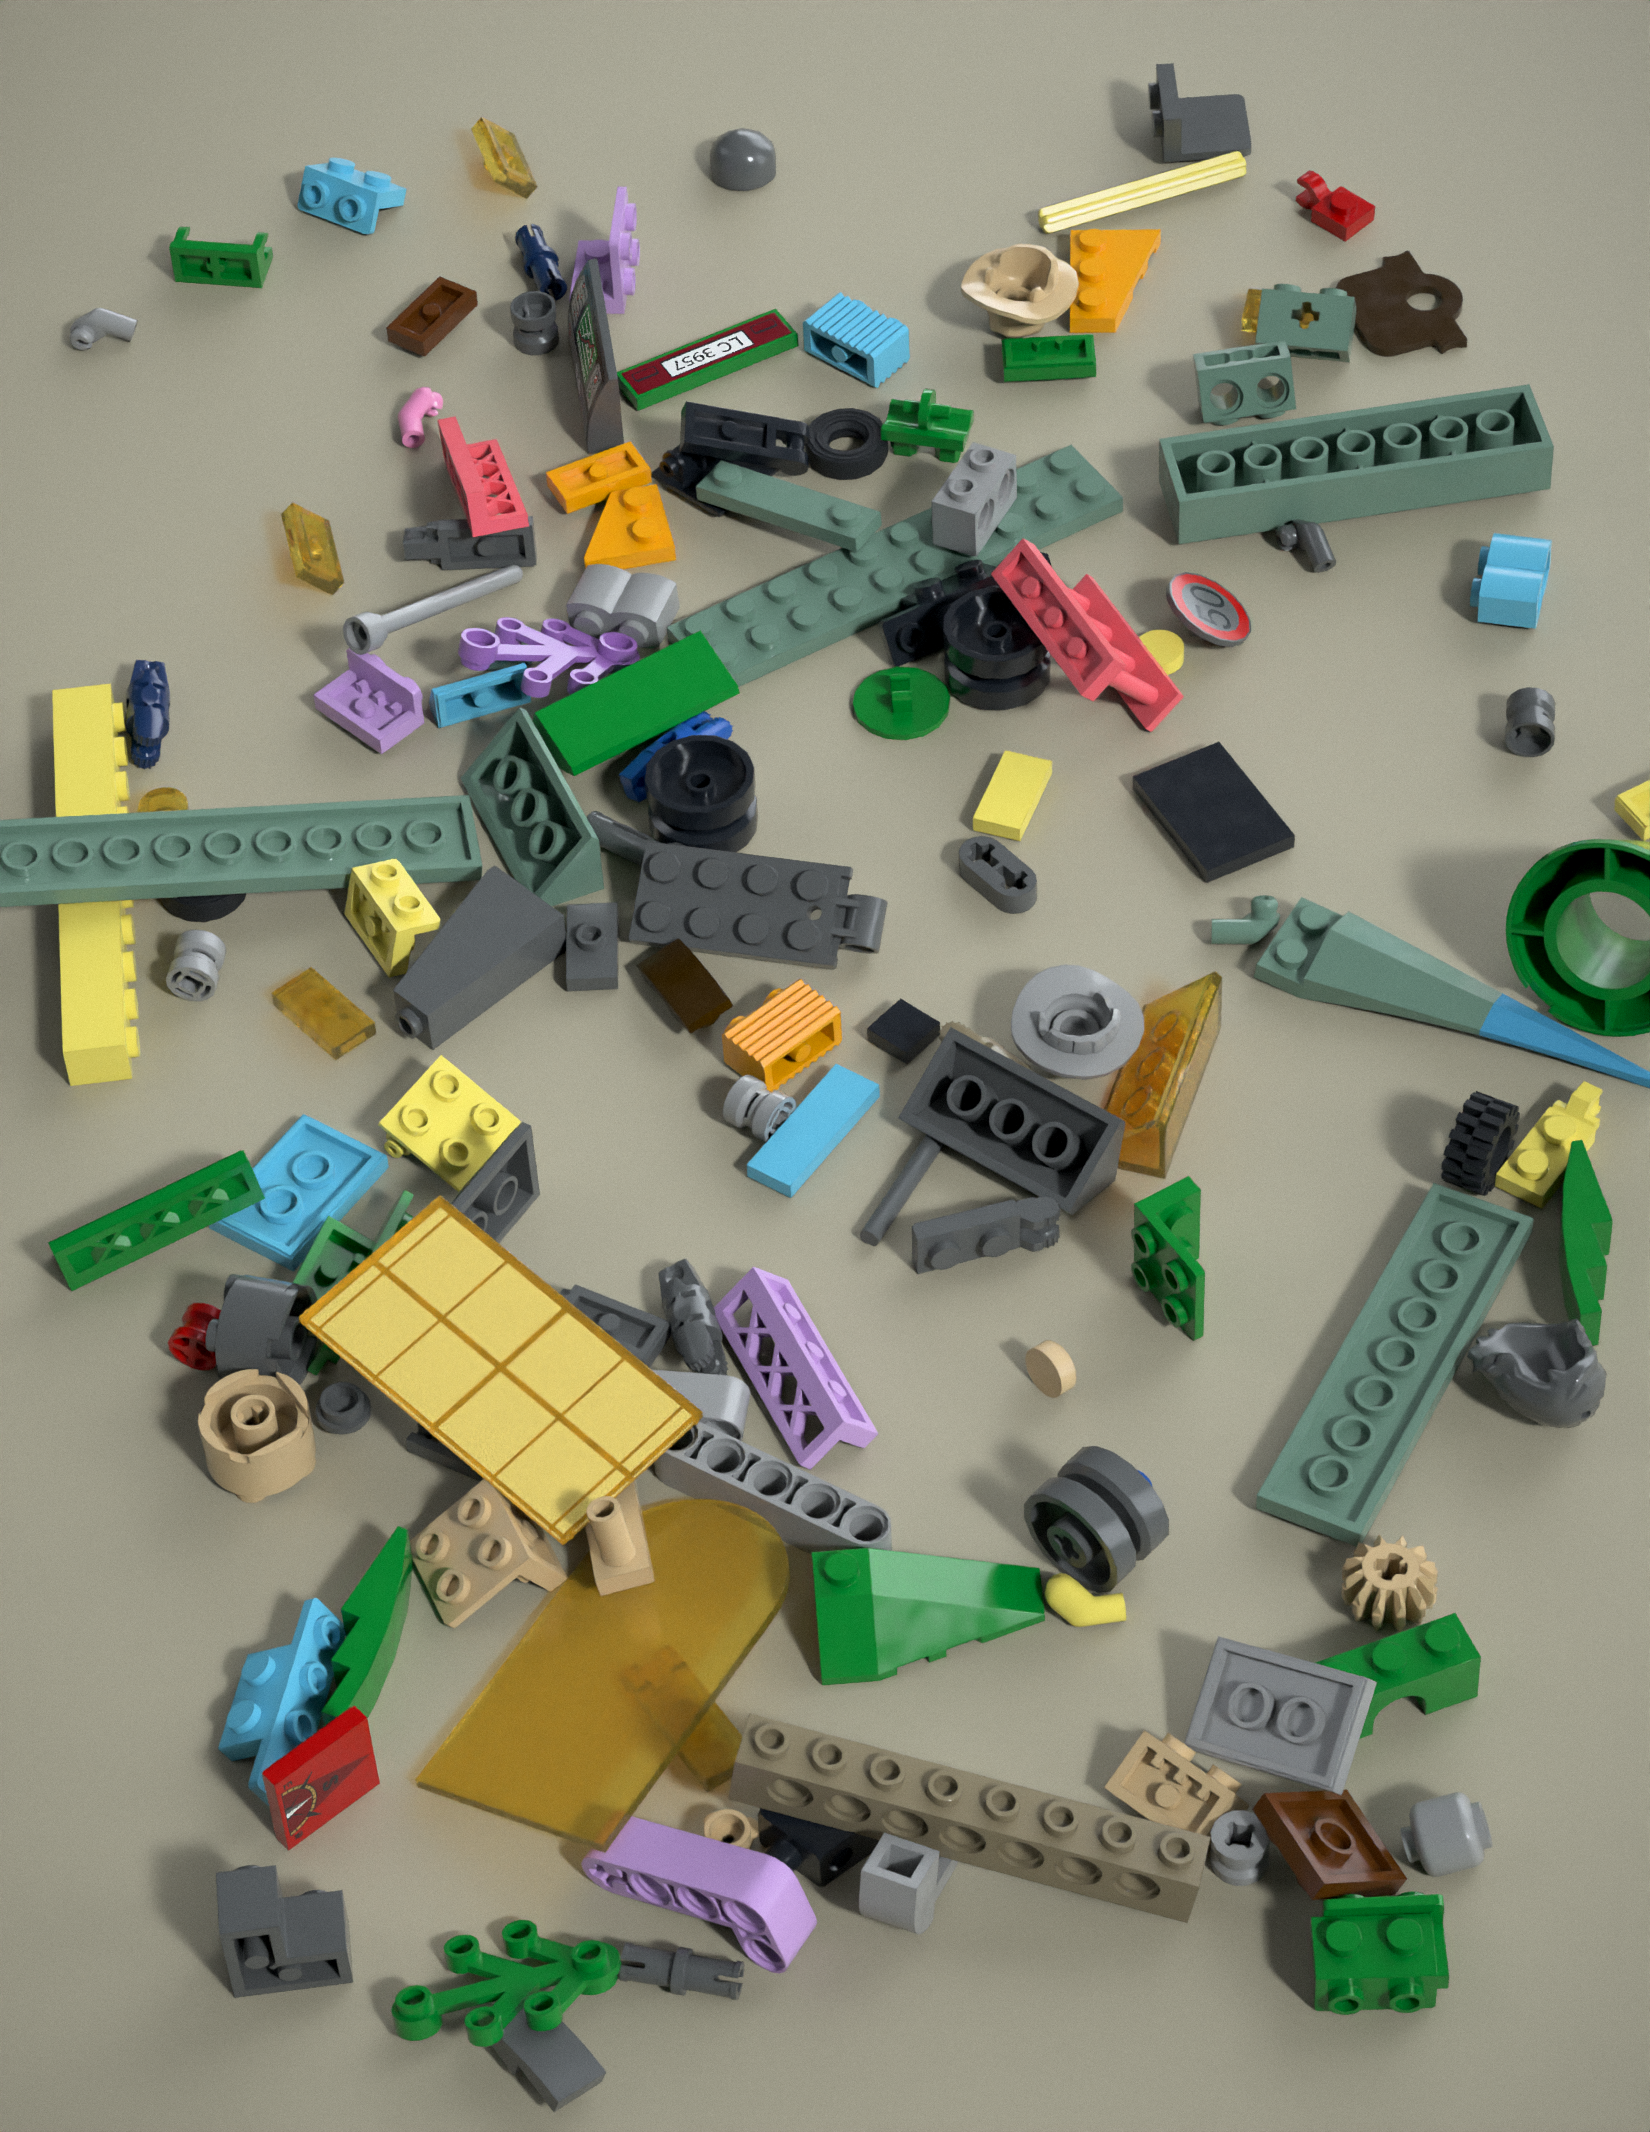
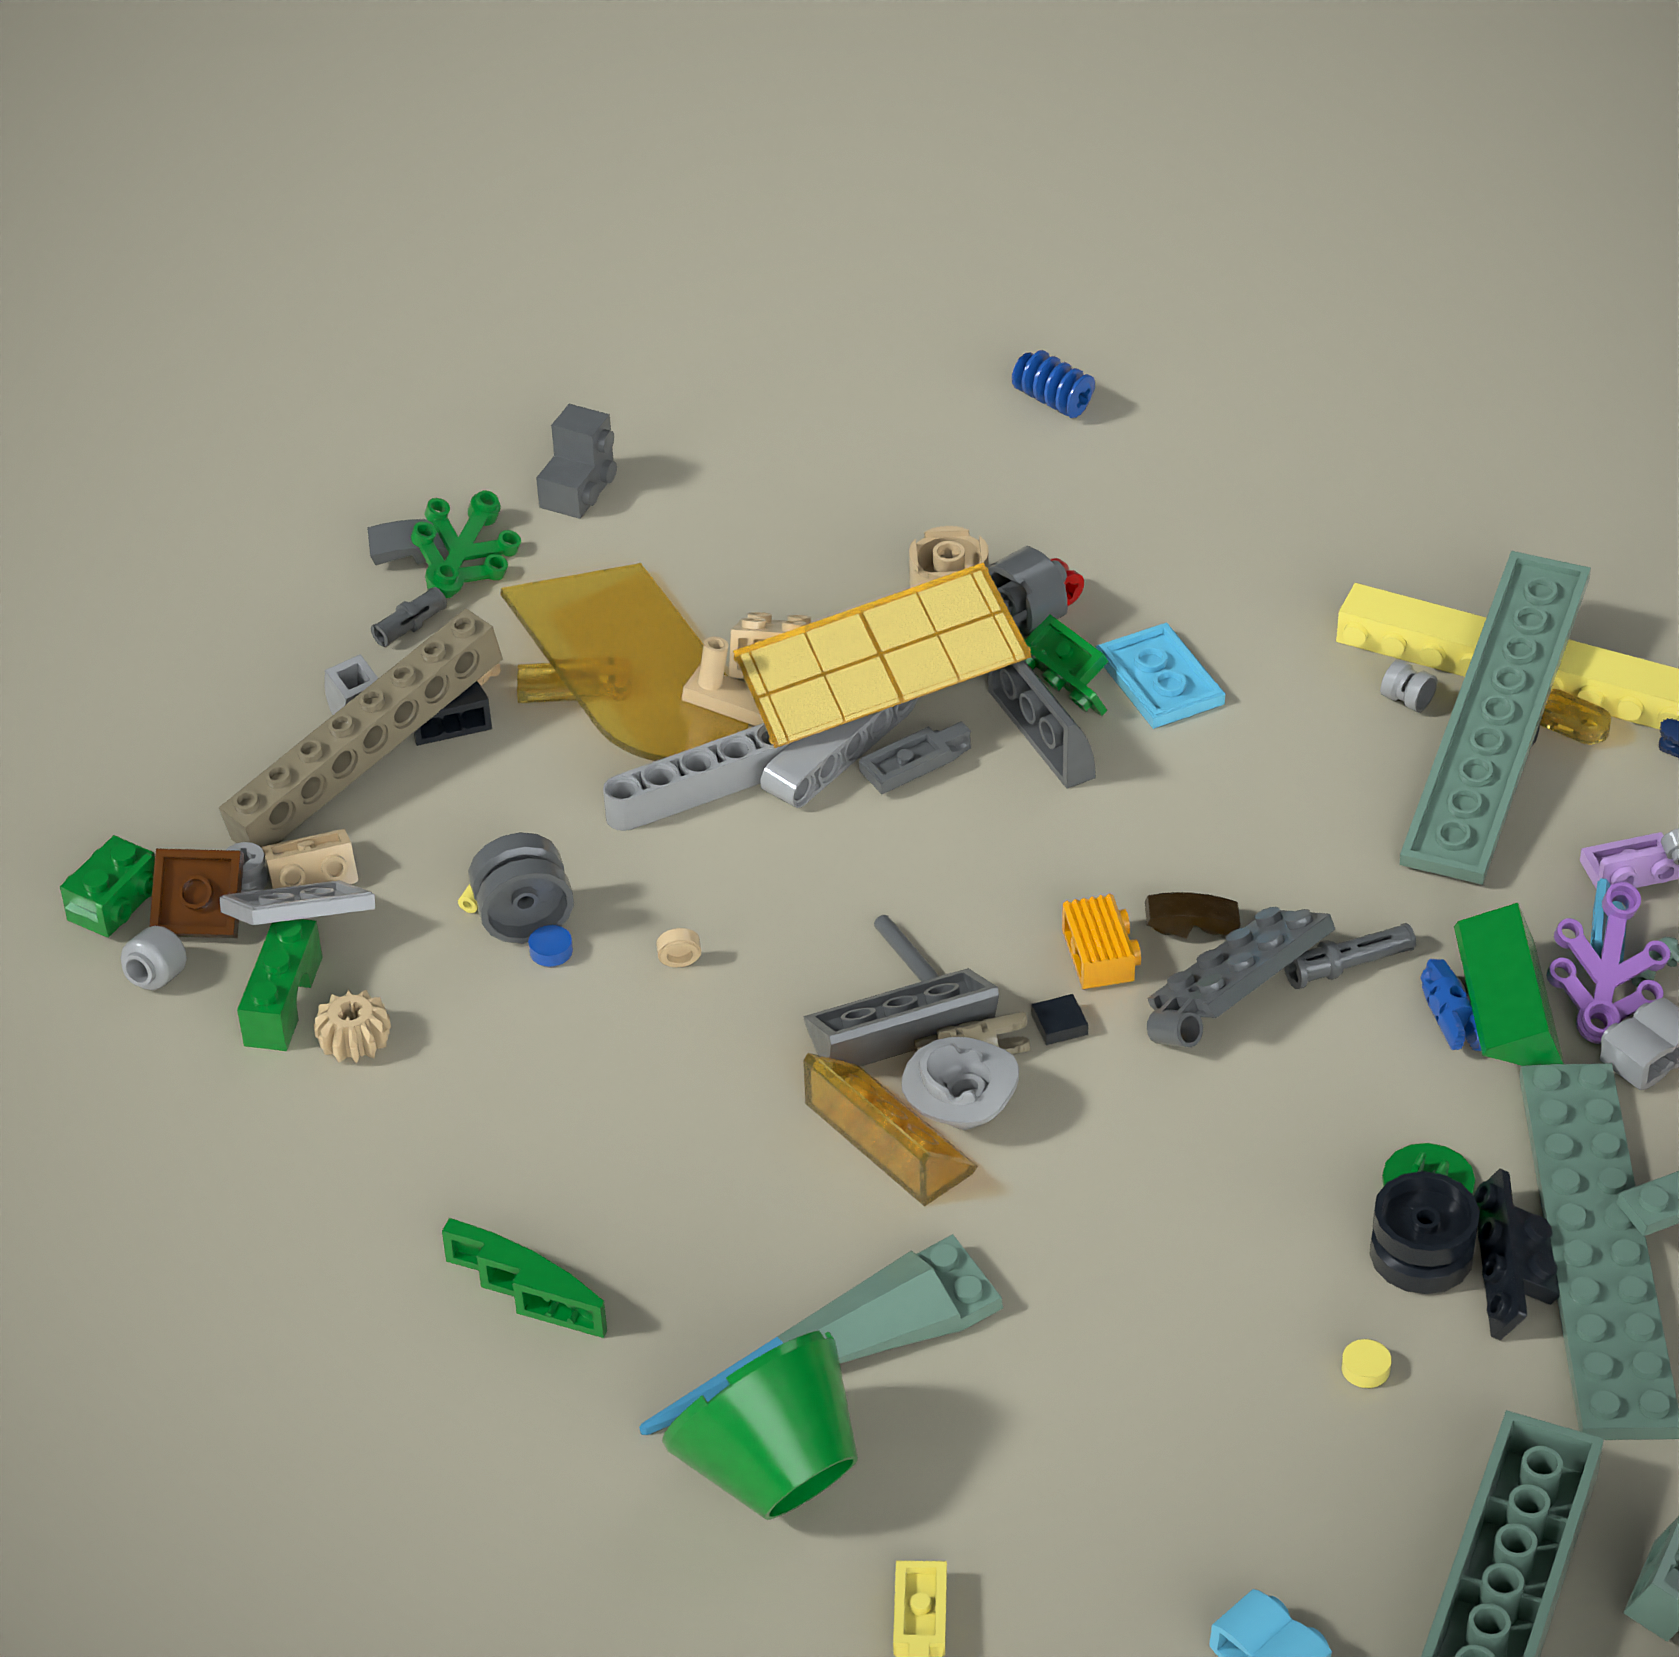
camera: 120 degrees right, 5 degrees down
(156, 1220) = (1177, 591): green fence -> none
(283, 1693) = (739, 528): medium azure bracket -> none
(321, 1777) = (661, 505): red tile -> none
(323, 1013) = (1320, 739): clear yellow plate -> none
(373, 1629) = (759, 578): green slope -> none
(388, 913) = (1381, 781): light yellow bracket -> none
(447, 1124) = (1156, 753): light yellow hinge -> none
(478, 958) = (1309, 823): dark grey slope -> none
(534, 815) = (1427, 909): sand green slope -> none
(592, 946) = (1273, 888): dark grey plate -> none
(692, 1319) = (876, 798): dark grey hinge -> none
(702, 794) = (1375, 986): black wheel -> none
(710, 1882) = (407, 622): lavender beam -> none
(756, 1107) = (1037, 902): light grey wheel -> none
(808, 1360) = (796, 836): lavender fence -> none
(813, 1130) = (1003, 933): medium azure tile -> none
(903, 1606) = (567, 791): green wedge -> none
(974, 499) = (1613, 1283): light grey brick -> none
(985, 1232) = (822, 970): dark grey hinge -> none
(1004, 869) = (1179, 1141): dark grey beam -> none
(1012, 795) = (1263, 1191): light yellow tile -> none
(1086, 635) = (1407, 1236): coral fence -> none
(1167, 1253) = (693, 1023): green bracket -> none
(1208, 609) = (1383, 1404): piece -> none
(1213, 812) = (1150, 1305): black tile -> none
(1251, 927) = (1003, 1261): sand green arm -> none
(1310, 538) = (1432, 1533): dark grey arm -> none
(1394, 1365) = (526, 1131): sand green plate -> none
(1480, 1143) = (653, 1252): black tyre -> none
(1530, 722) = (1083, 1557): dark grey wheel -> none
(1542, 1157) = (634, 1325): light yellow hinge -> none
(1543, 1371) = (434, 1179): dark grey piece -> none

